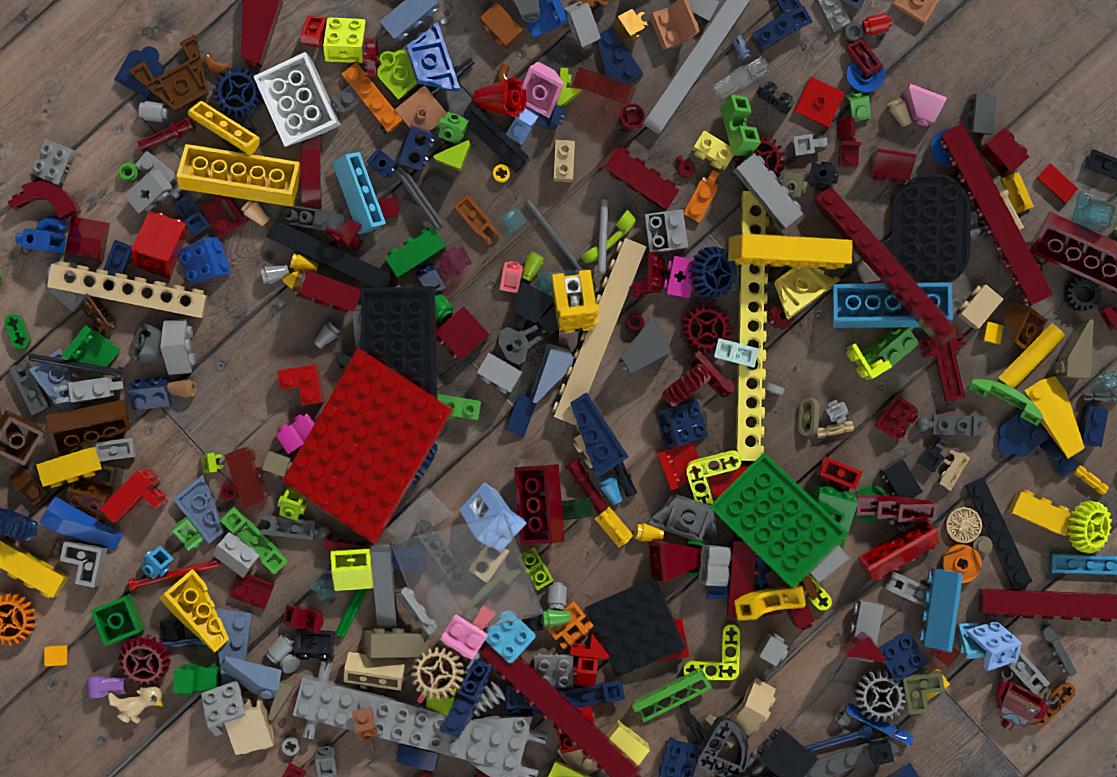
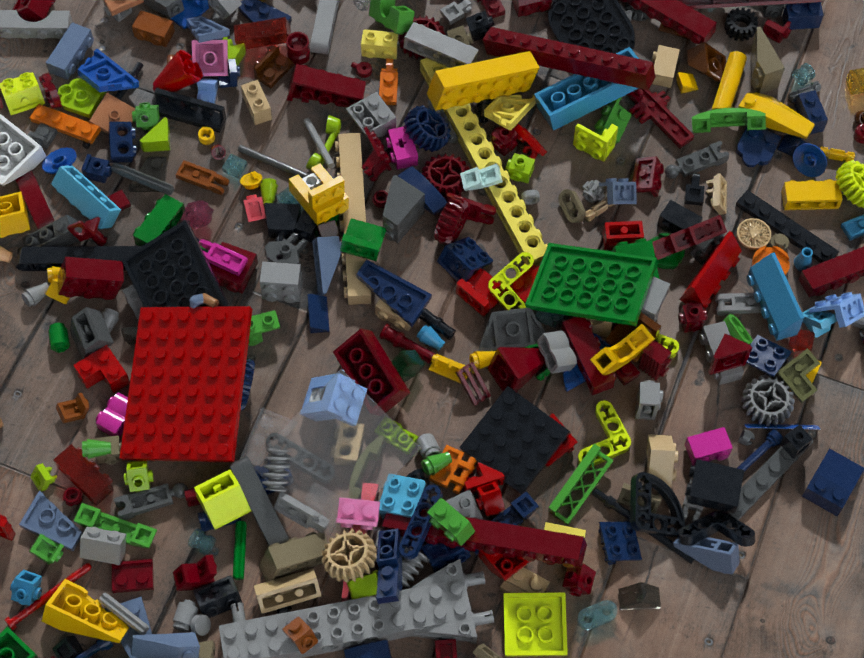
camera: 25 degrees left, 25 degrees down
(229, 626) = (123, 613): none -> light grey axle
(261, 408) = (73, 409): none -> dark orange bracket
(263, 465) = (95, 448): none -> bright green cone
(277, 330) = (58, 337): none -> green brick
(306, 344) = (89, 331): none -> dark grey slope
(347, 133) = (58, 158): none -> blue dish
(409, 568) = (276, 469): none -> light grey piece
(415, 375) = (197, 300): none -> arm
(456, 328) = (224, 257): none -> dark pink hinge
(504, 203) = (221, 149): none -> dark red hinge
(511, 670) = (418, 521): none -> dark blue beam
(521, 245) = (251, 180): none -> yellow hat
(535, 691) = (448, 519): none -> bright green brick
(549, 57) = (206, 29): none -> sand blue wing
(594, 367) = (363, 239): none -> green bracket
(599, 125) = (272, 67): none -> reddish brown bracket
(626, 567) = (481, 398): none -> dark red tile
(676, 336) = (433, 199): none -> dark blue slope
(787, 355) = (520, 168): none -> lime brick
(803, 715) = (709, 446): none -> dark pink brick
(804, 321) = (525, 136): none -> red plate
(851, 582) = (692, 317): none -> dark red brick
(860, 426) = (620, 191): none -> sand blue bracket
(892, 617) = (737, 330): none -> bright green plate
(989, 574) = (803, 259): none -> dark azure cone
(1059, 479) = (805, 164): none -> blue dish

